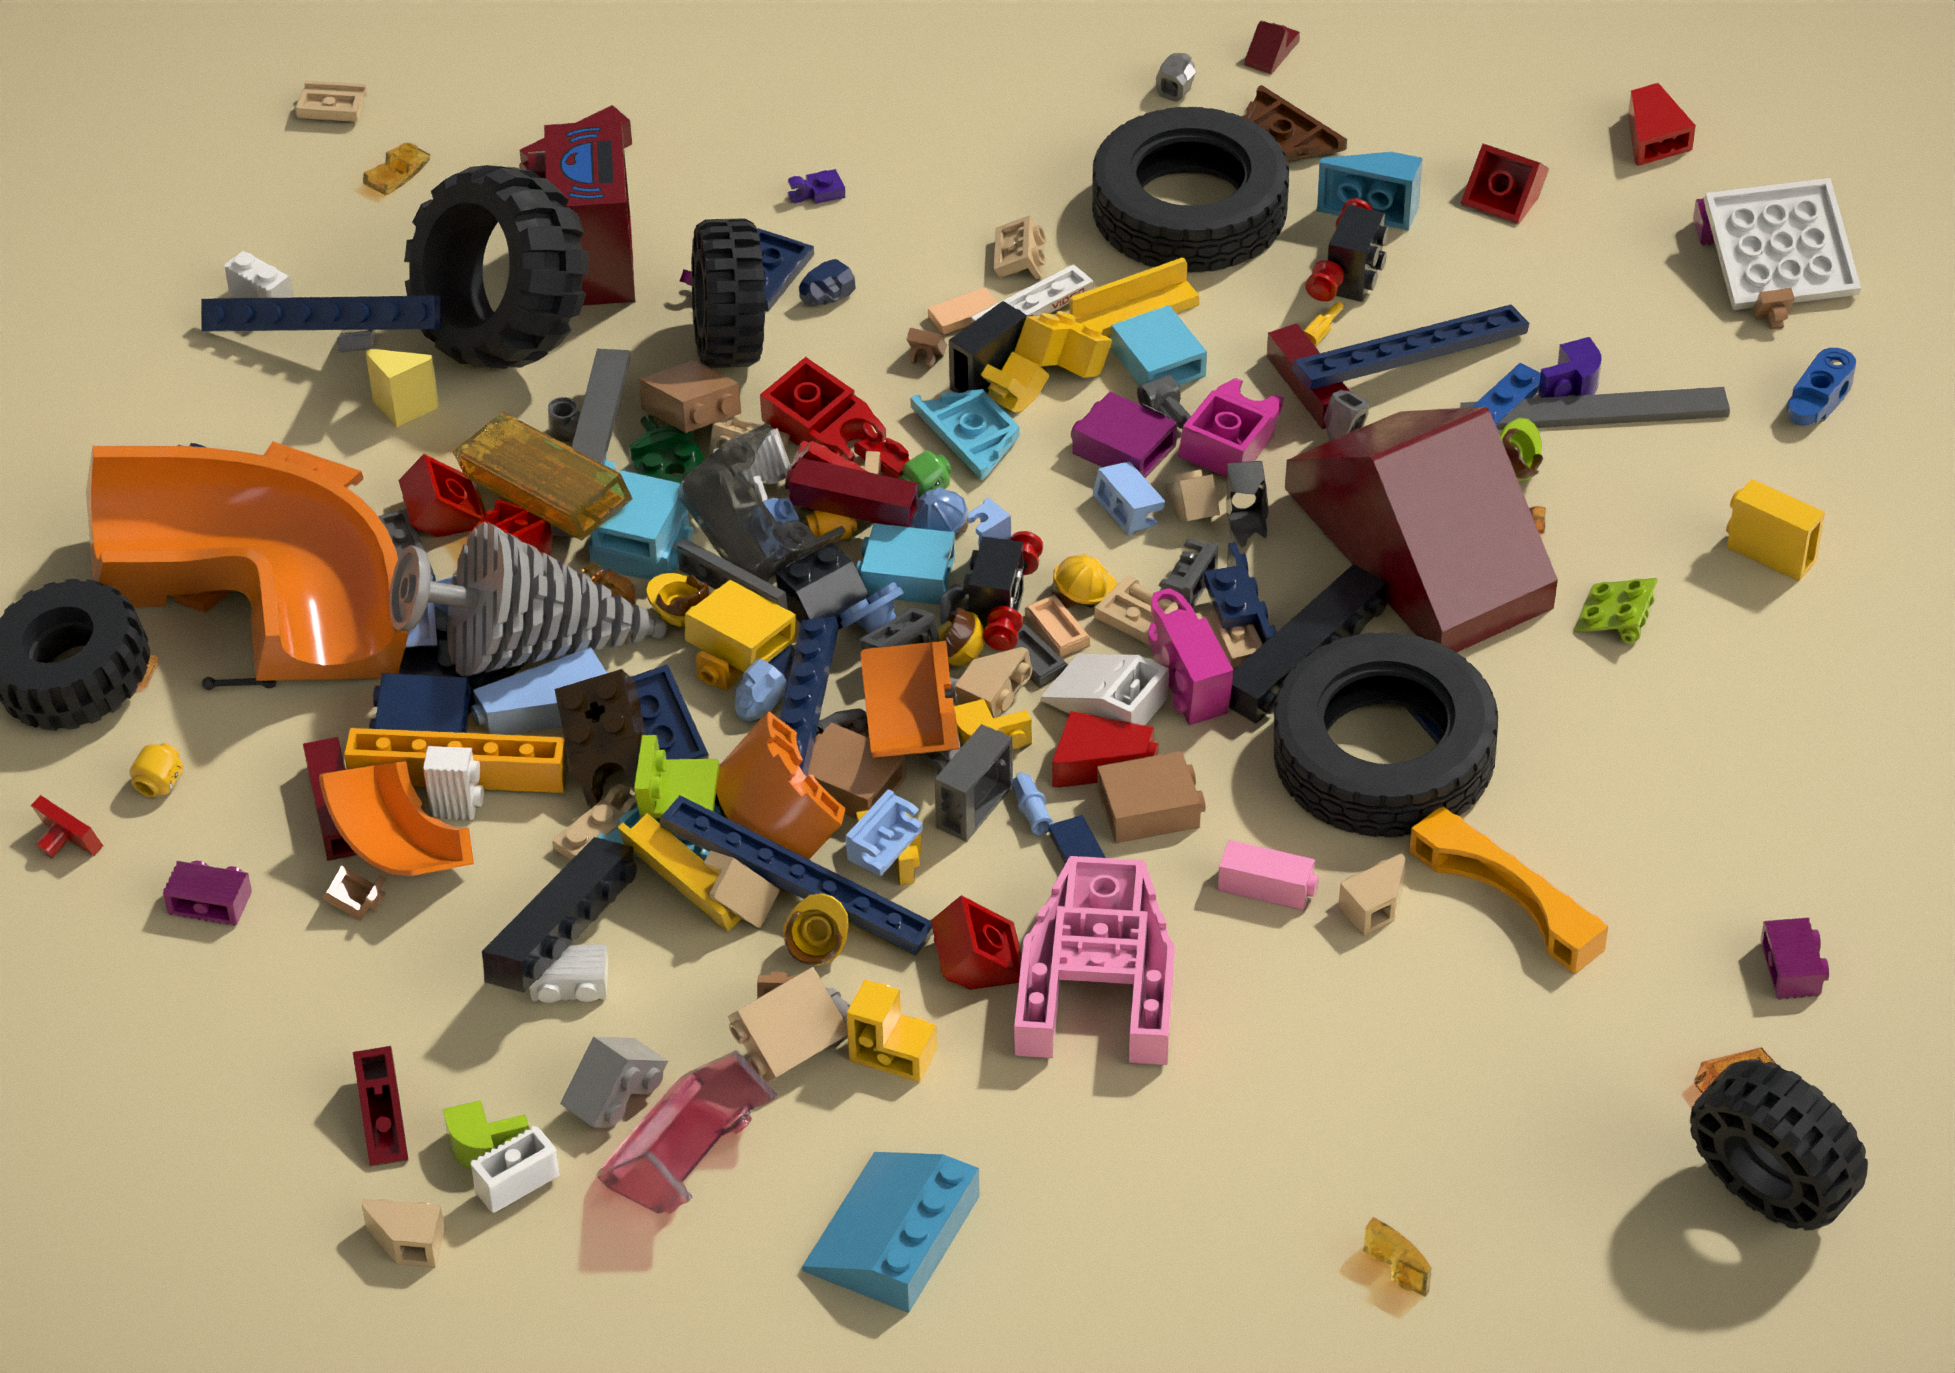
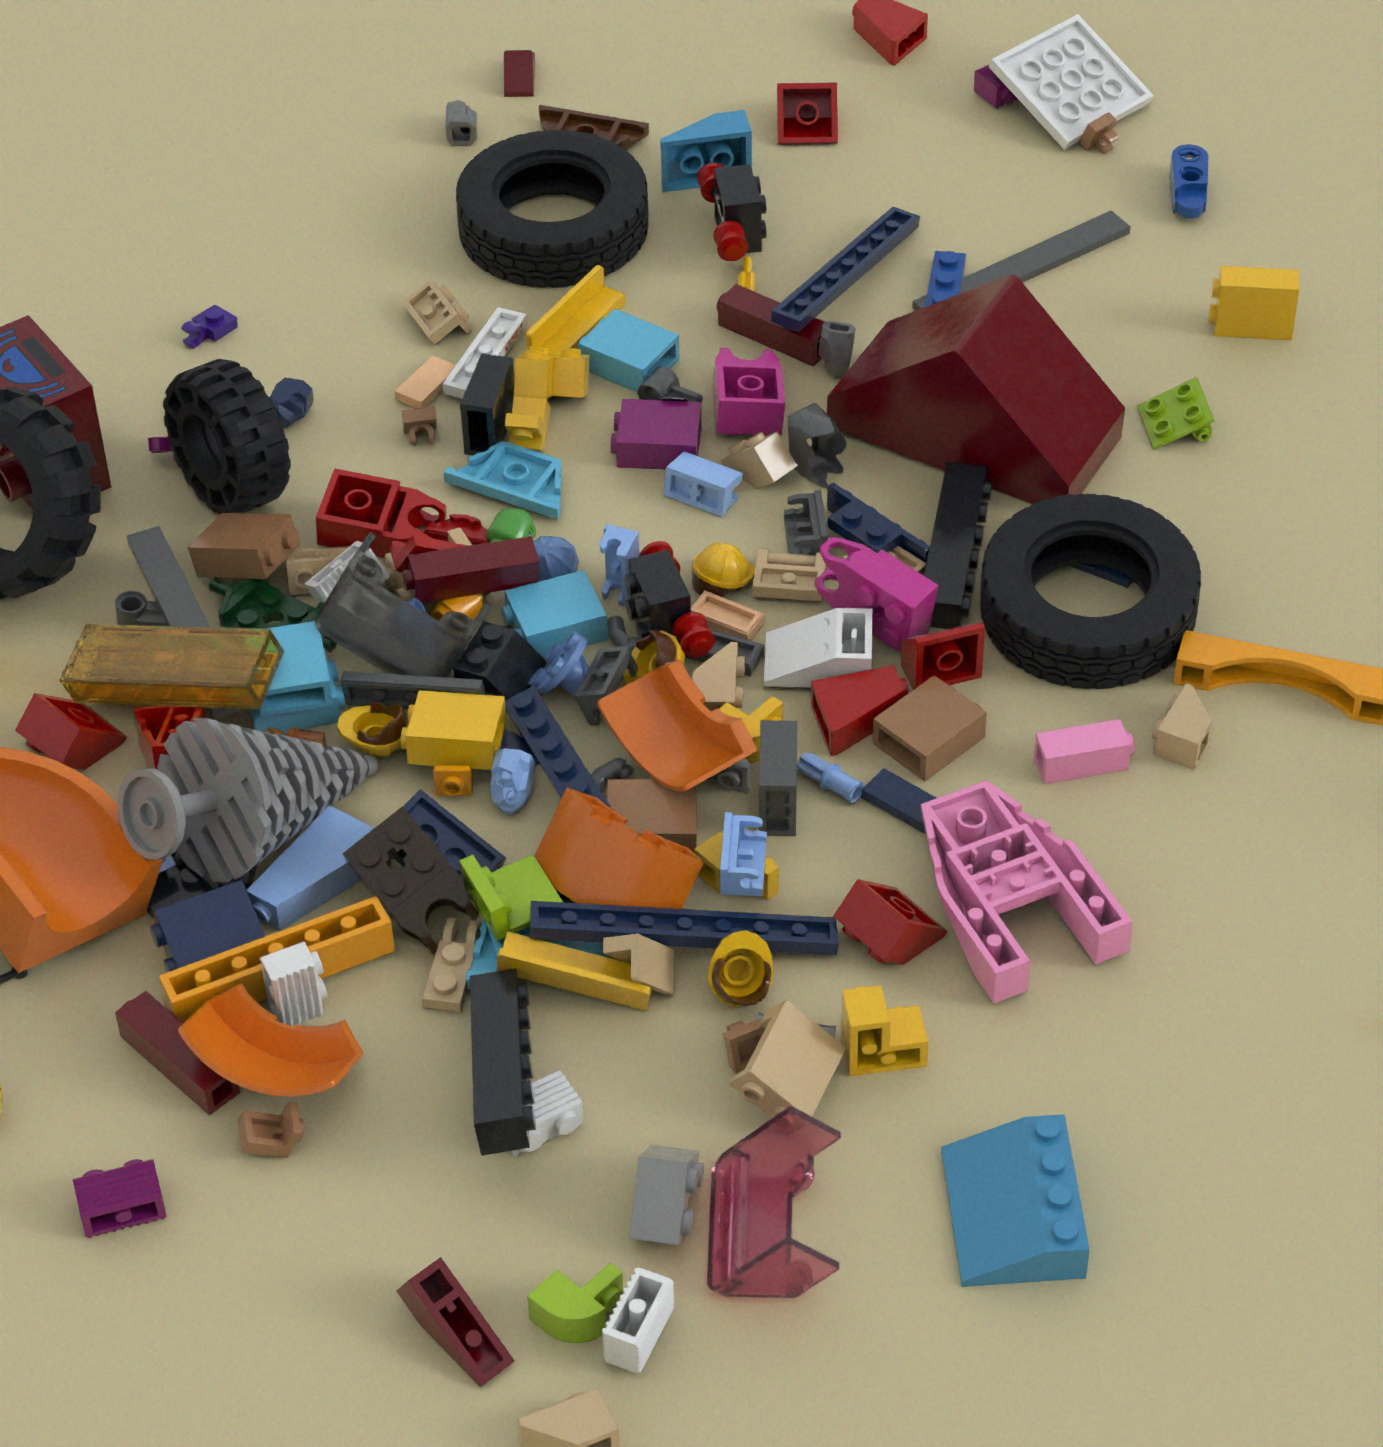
camera: 30 degrees left, 0 degrees up
(1210, 739) = (948, 654): none -> red slope
(1576, 370) = (986, 240): dark purple brick -> none

